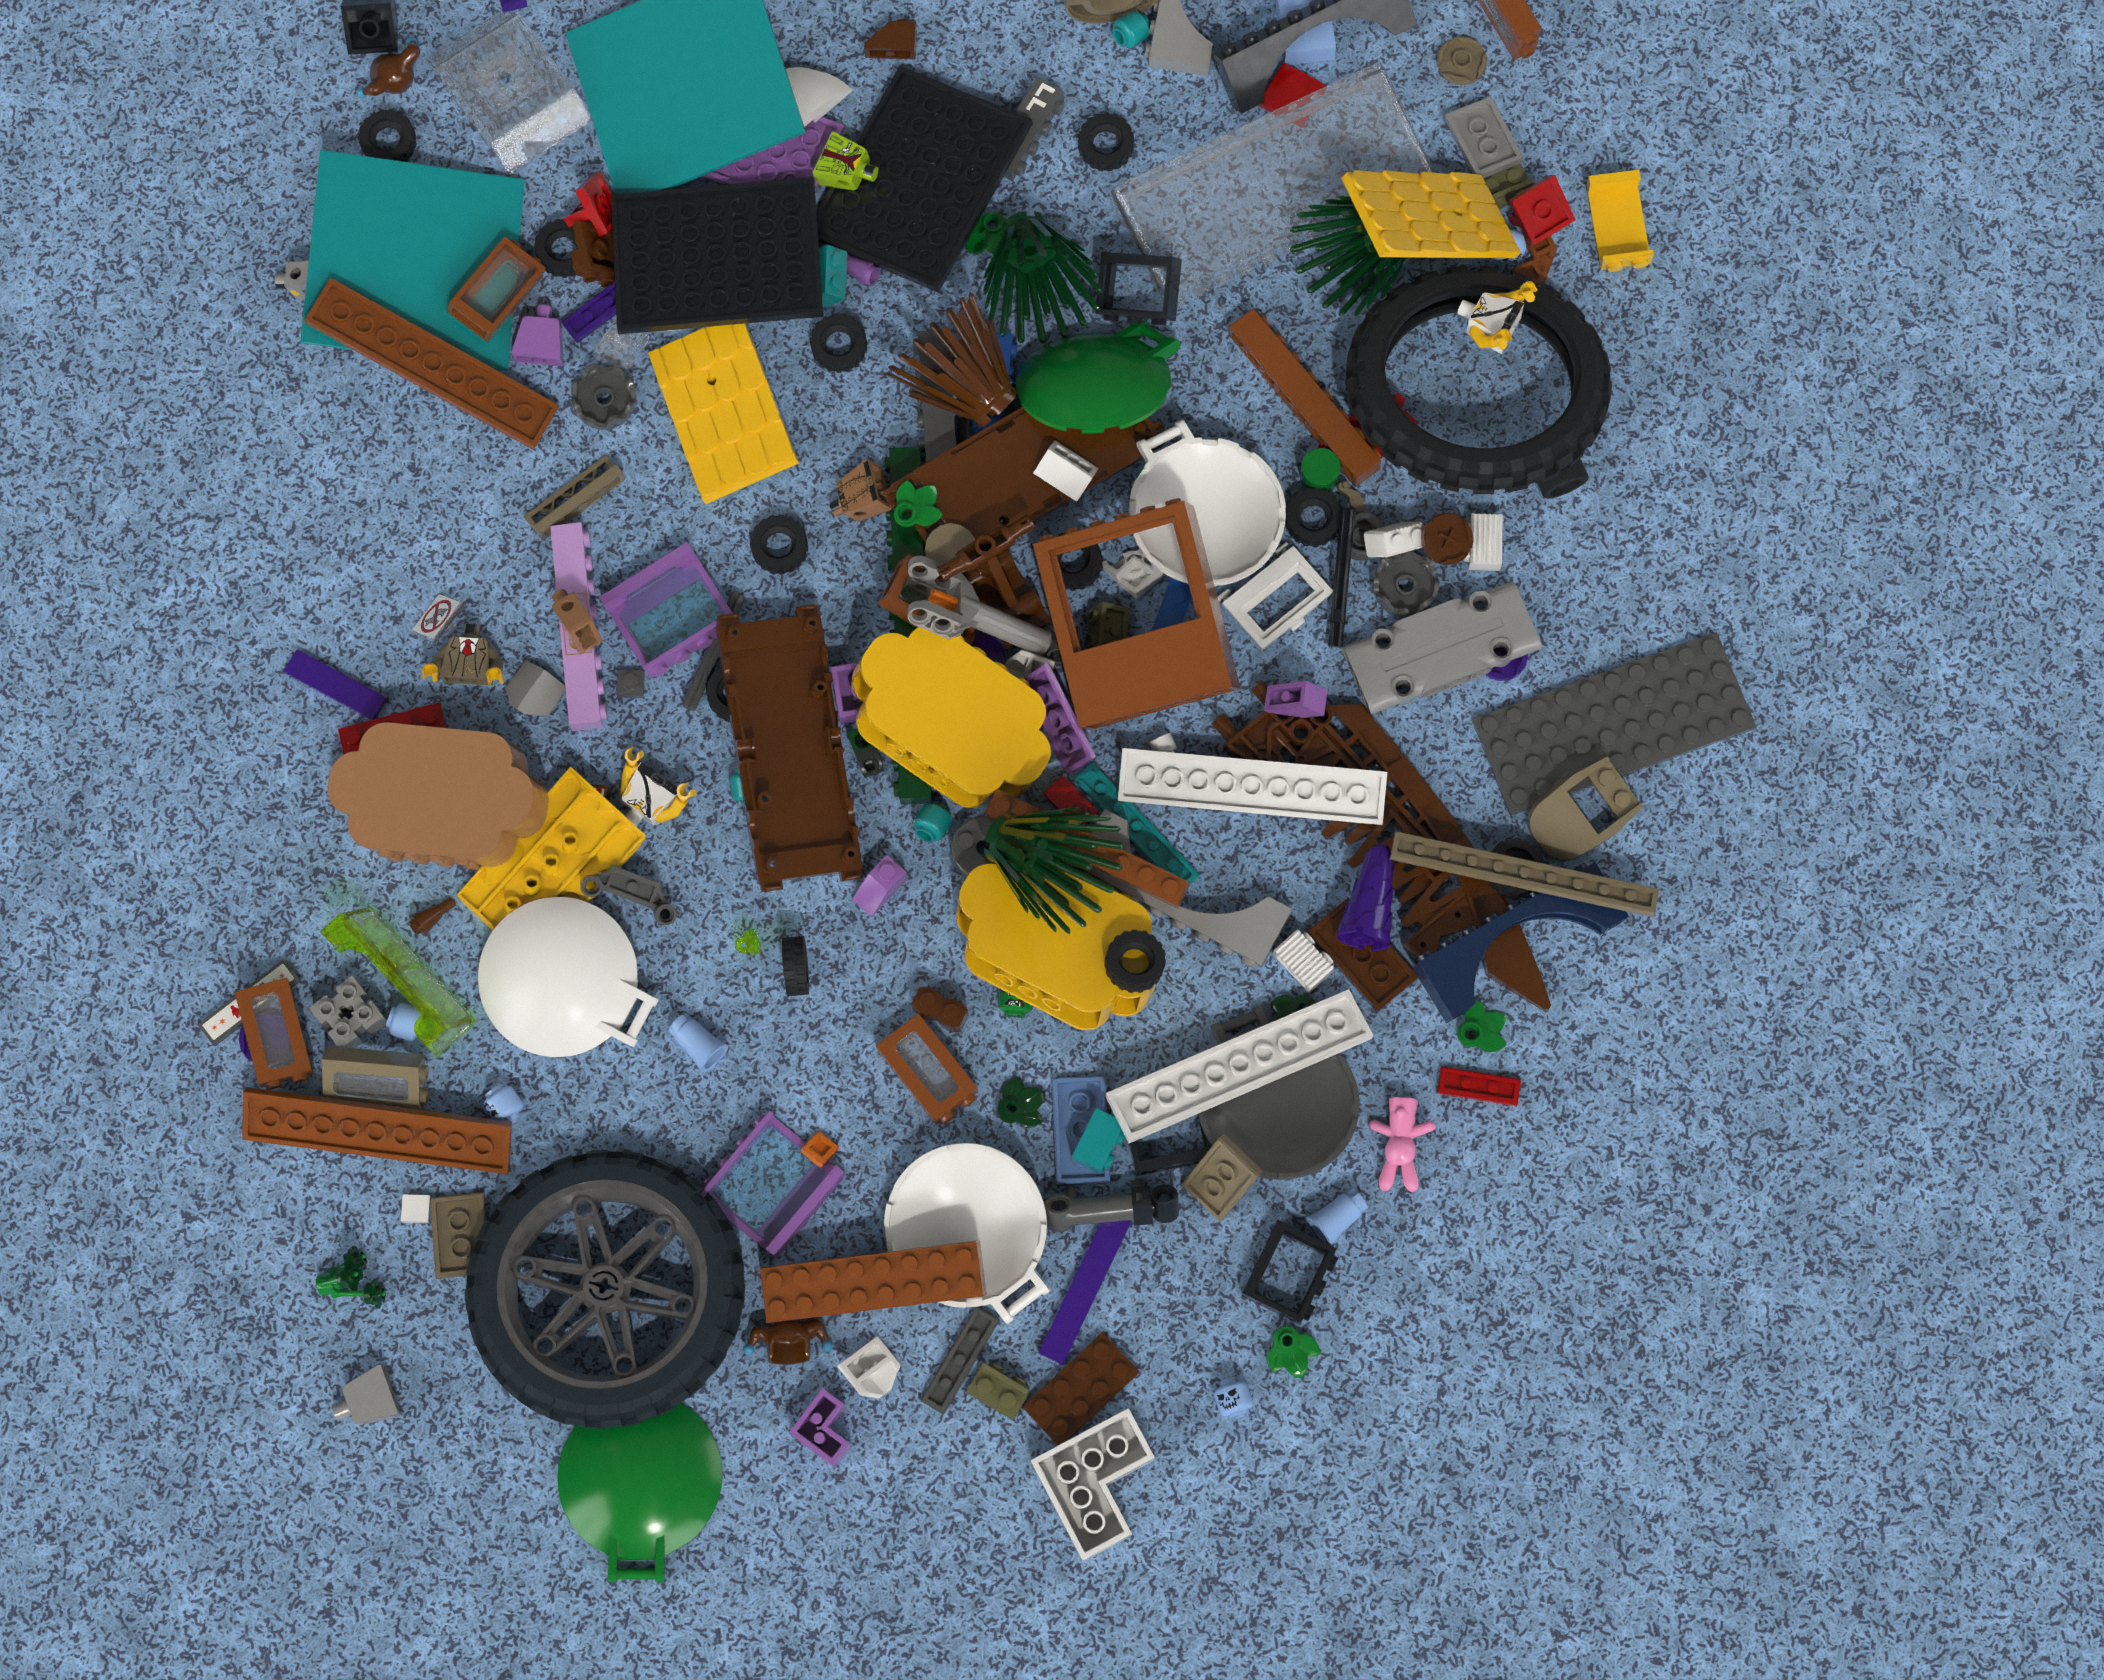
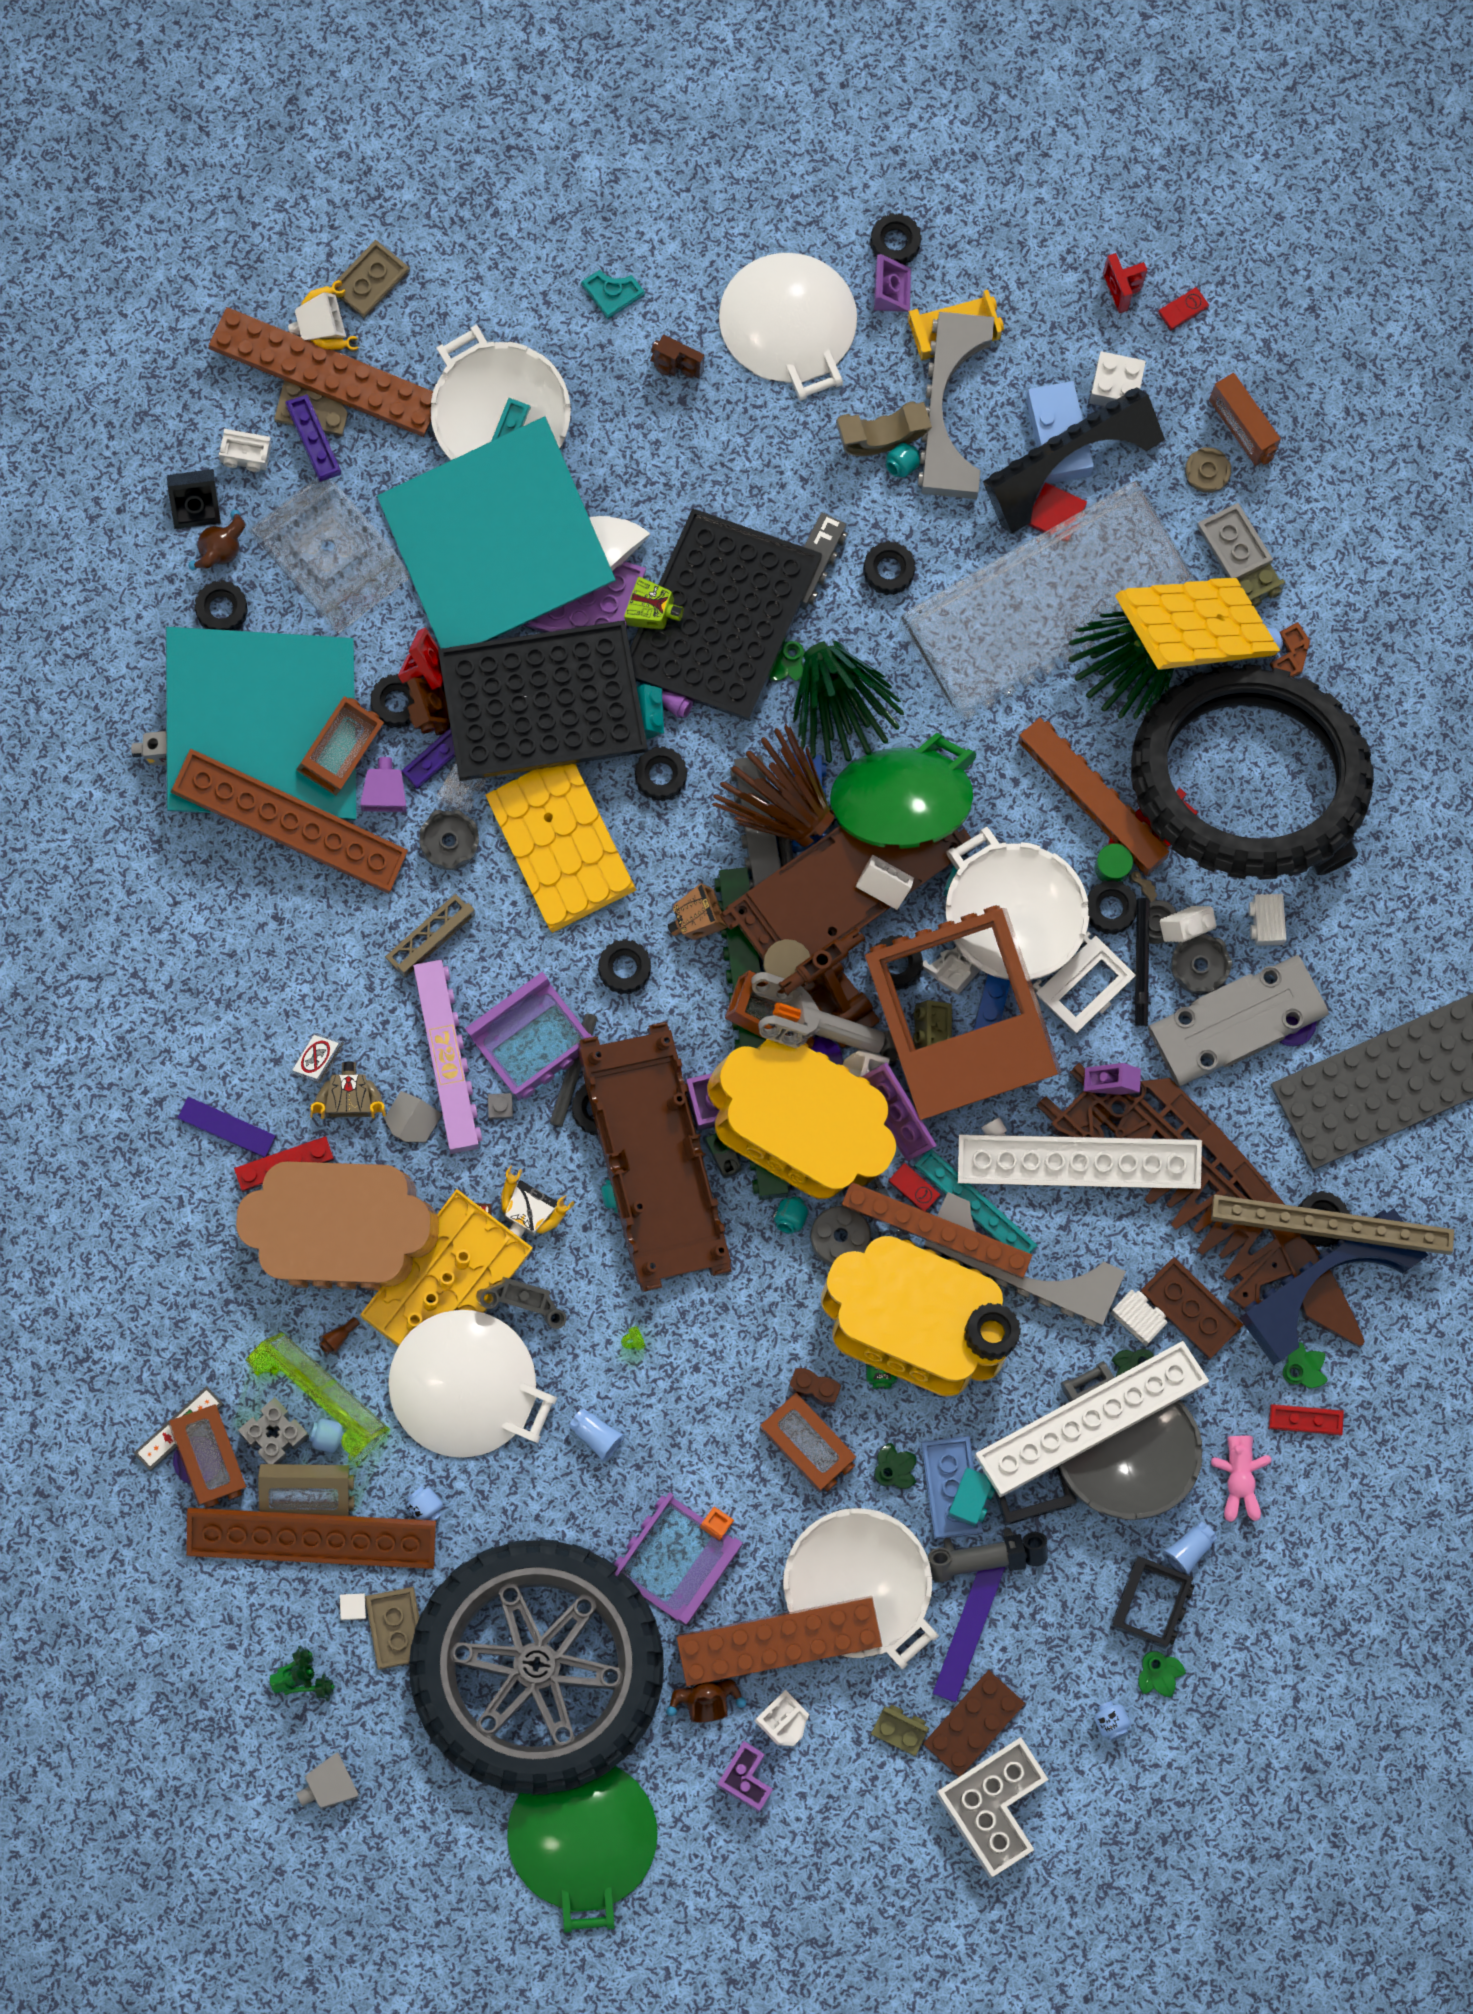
camera: 15 degrees left, 0 degrees up
(575, 620) = (448, 1052): medium nougat torso -> none
(795, 966) = (680, 1357): black tyre -> none
(880, 885) = (748, 1277): medium lavender slope -> none
(893, 41) = (684, 485): reddish brown slope -> none
(919, 502) = (755, 922): green plate -> none
(960, 1360) = (862, 1705): dark grey tile -> none
(1023, 848) = (884, 1235): dark green plant -> none
(1107, 275) = (903, 693): black window -> none
(1222, 1177) = (1085, 1521): dark tan tile -> none
(1368, 913) = (1196, 1270): dark purple cone -> none
(1447, 539) = (1235, 920): reddish brown tile -> none
(1496, 316) = (1264, 713): torso -> none
(1541, 210) = (1293, 608): red bracket -> none
(1560, 824) = (1359, 1175): dark tan slope -> none
(1618, 220) = (1363, 612): yellow panel -> none

